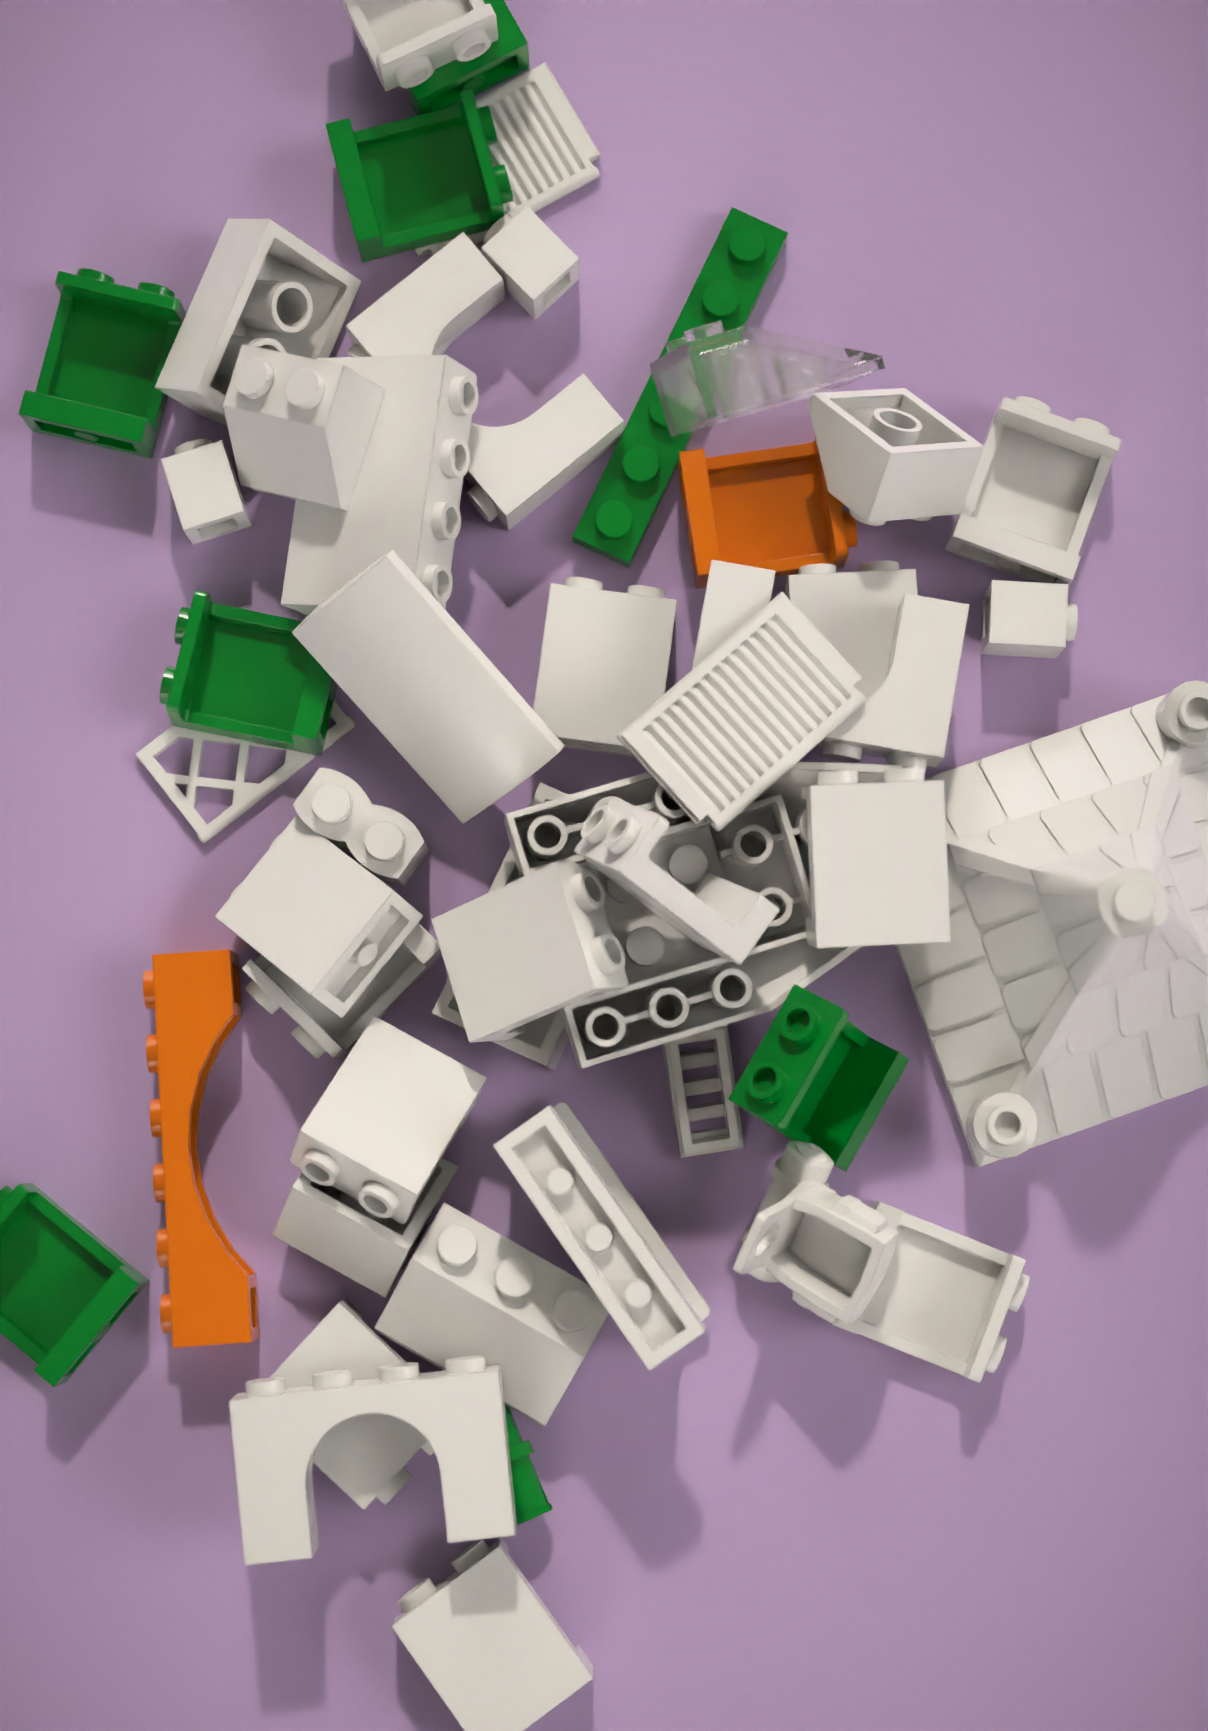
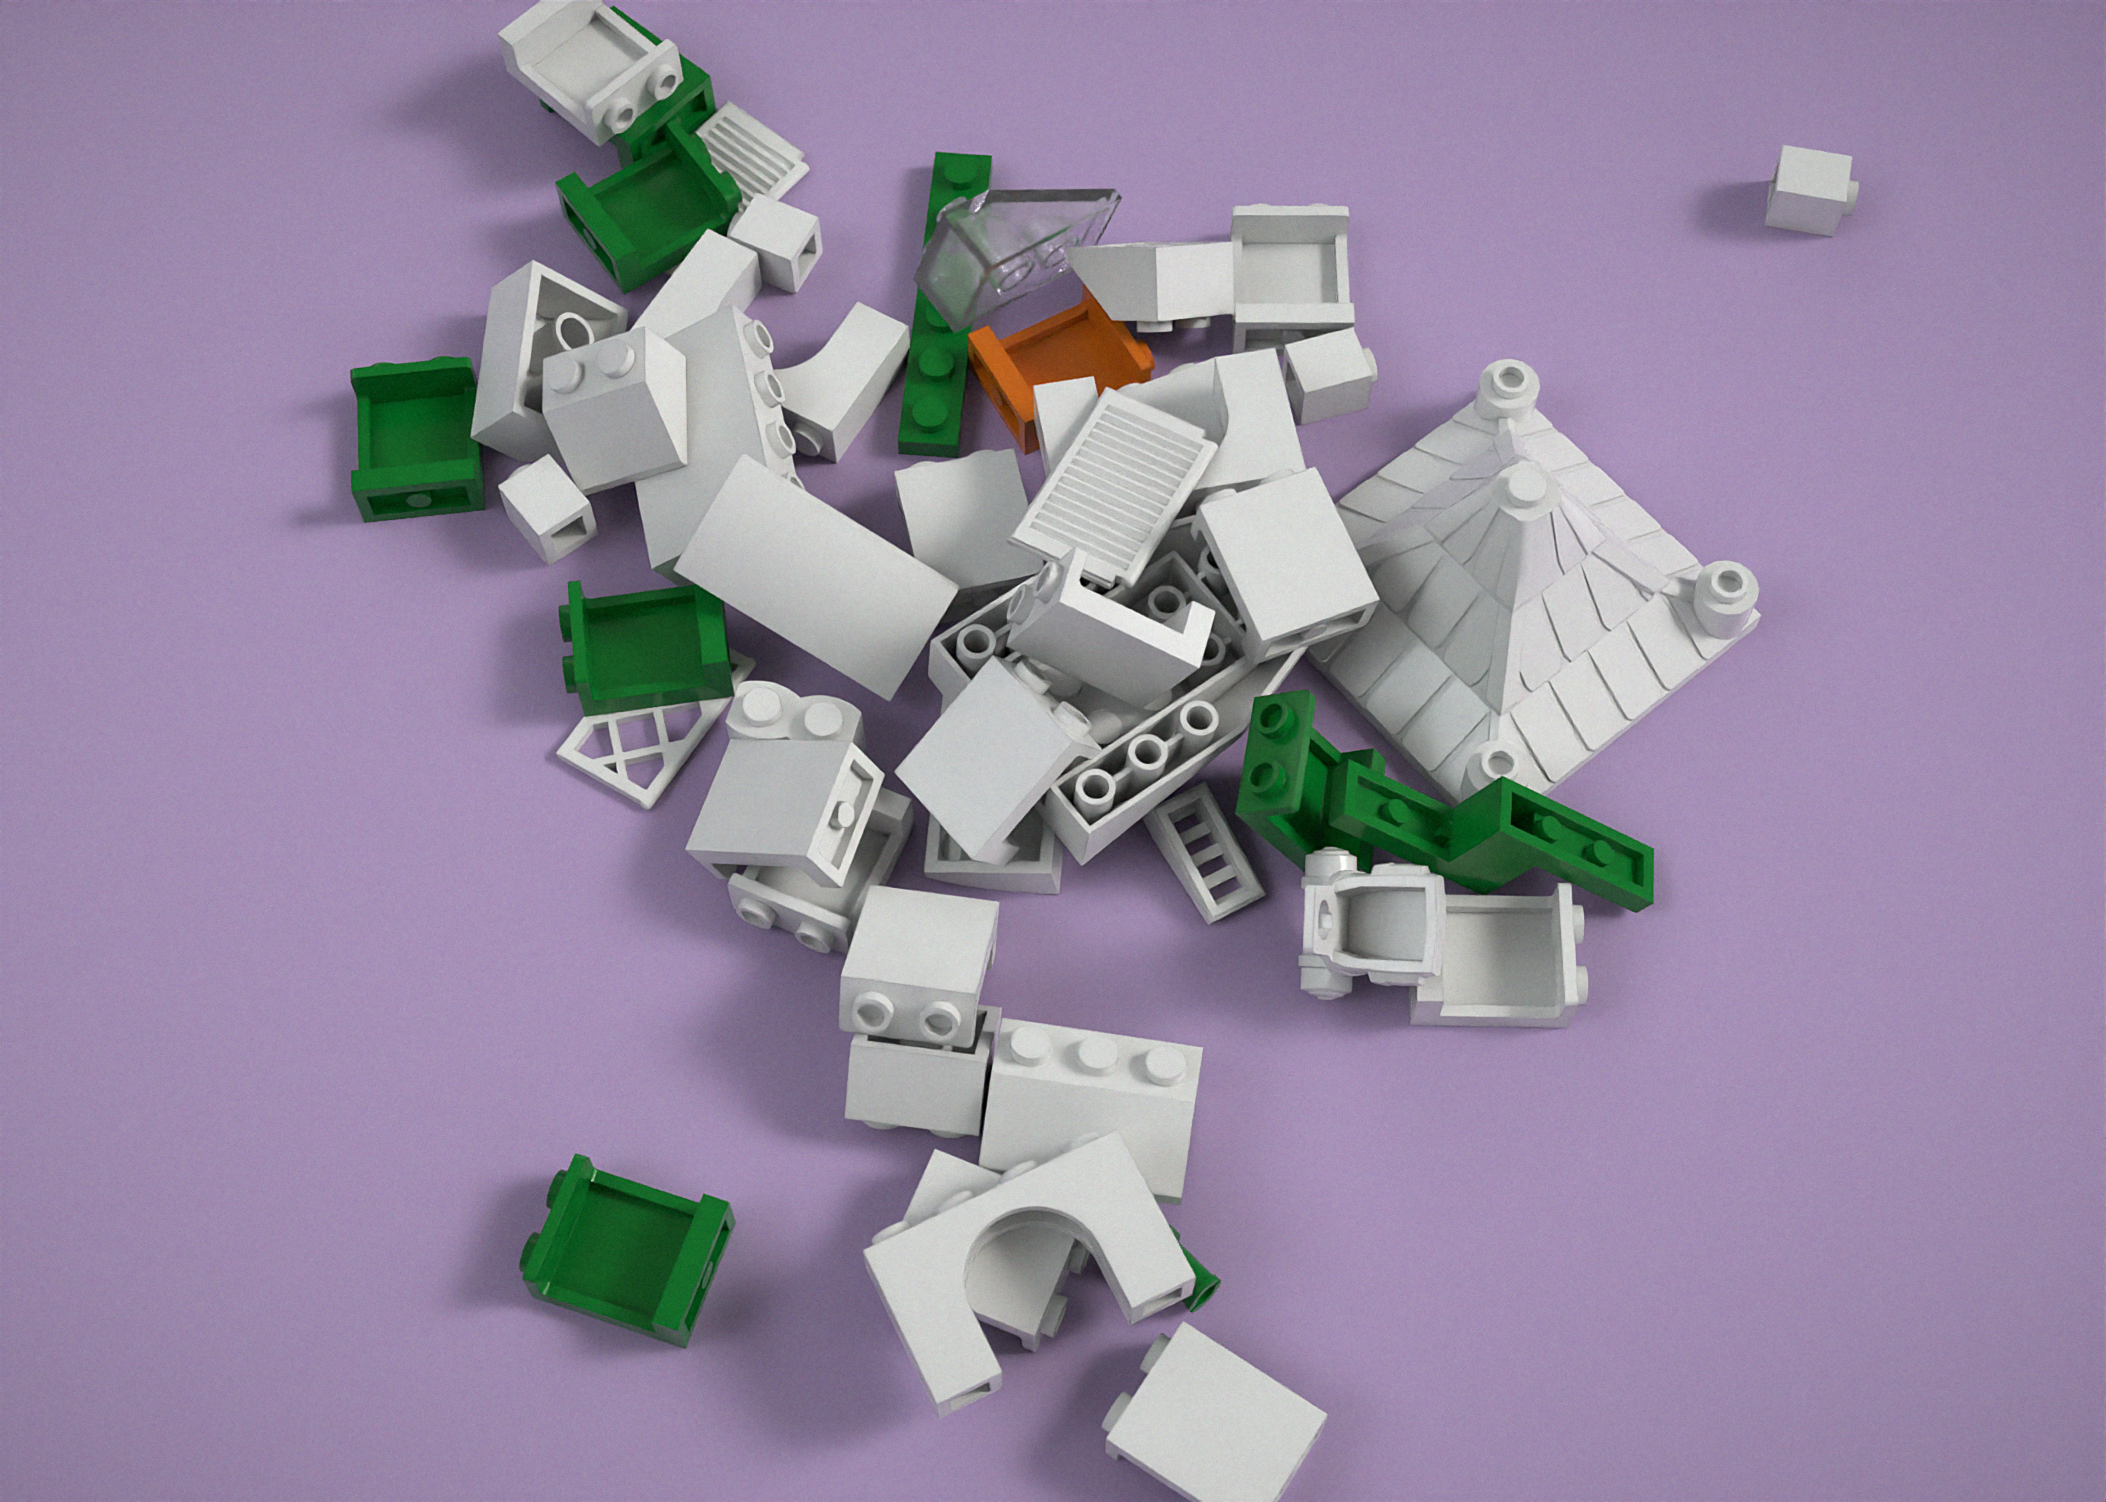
camera: 20 degrees left, 20 degrees down
(209, 1281) = (798, 1183): orange arch -> none
(605, 1233) = (1166, 979): white panel -> none
(971, 1186) = (1492, 836): none -> green bracket

